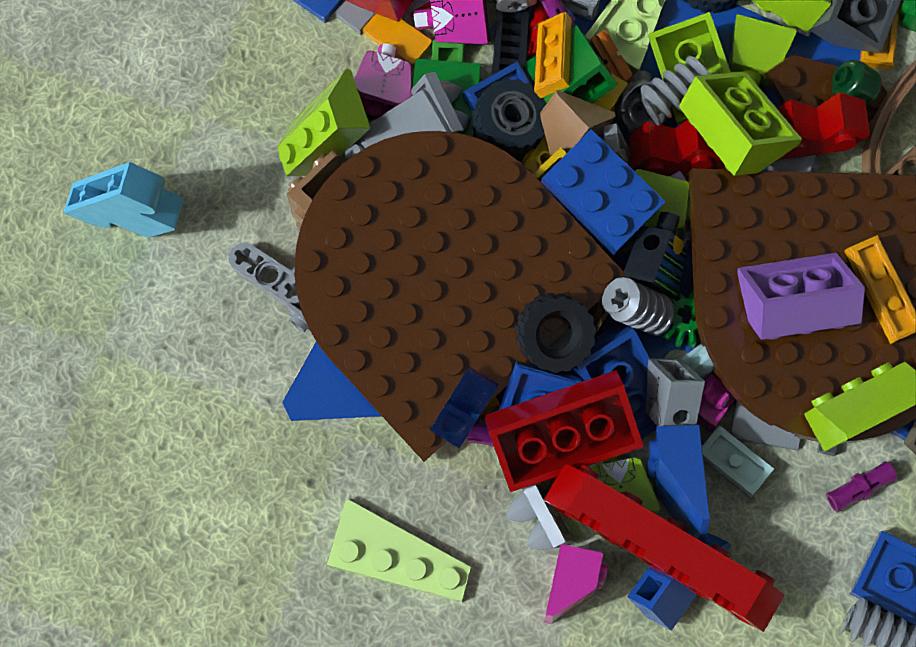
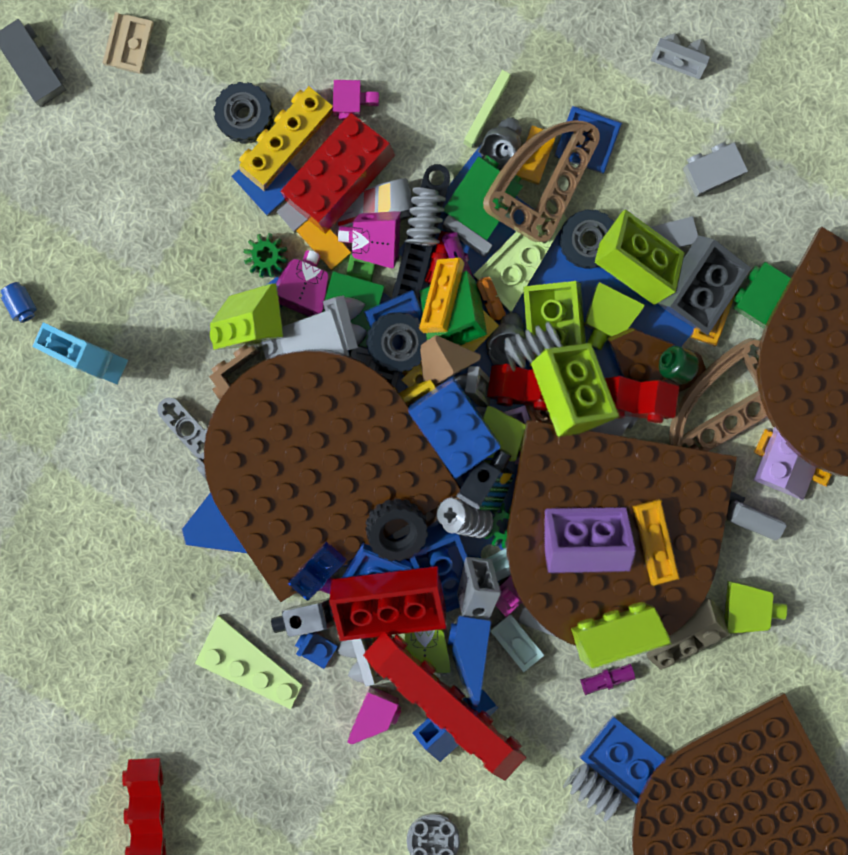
camera: 10 degrees right, 15 degrees up
(39, 167) = (18, 302): none -> blue brick
(320, 57) = (261, 247): none -> green gear
(473, 474) = (314, 617): none -> torso
(479, 517) = (315, 648): none -> blue bracket

